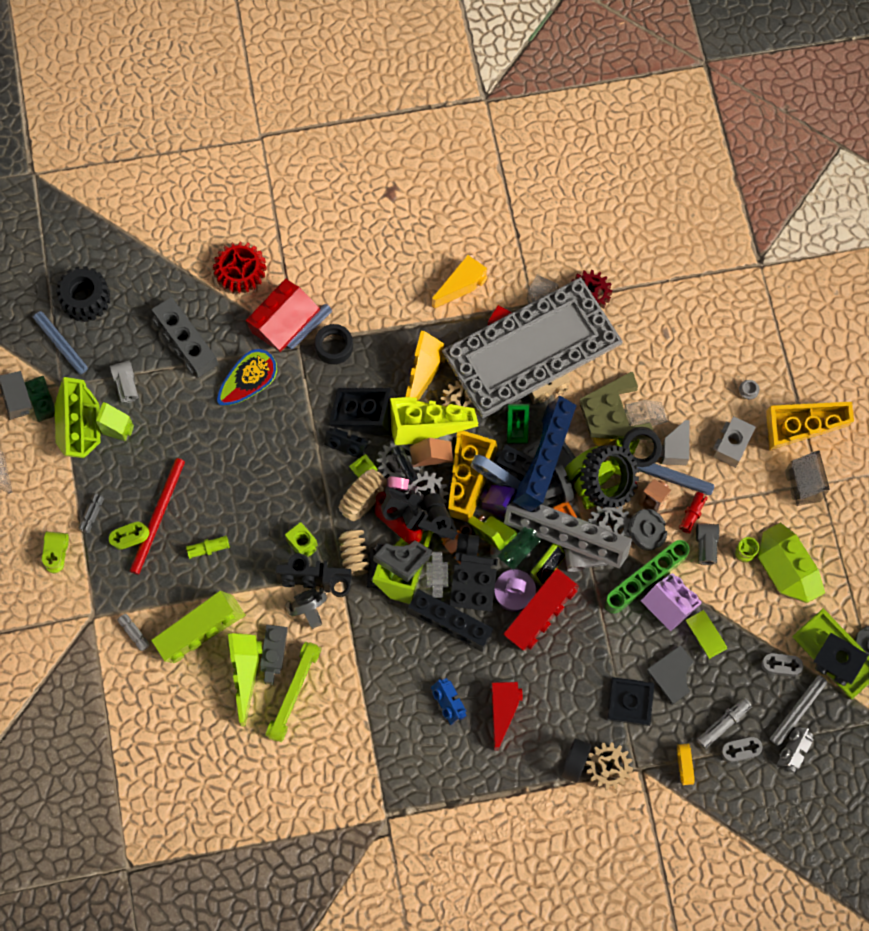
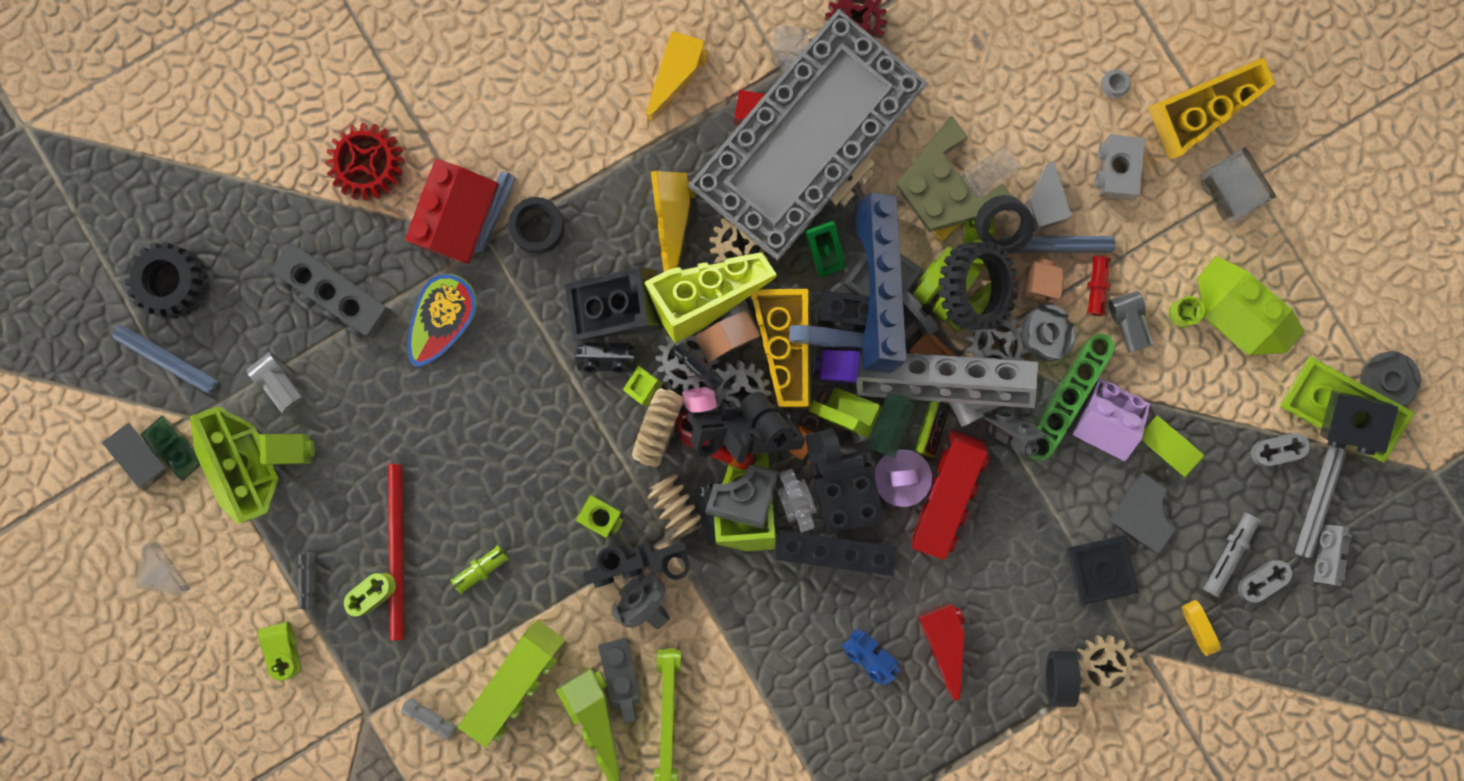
camera: 20 degrees left, 15 degrees up
(599, 583) = (1005, 425): none -> dark grey hinge

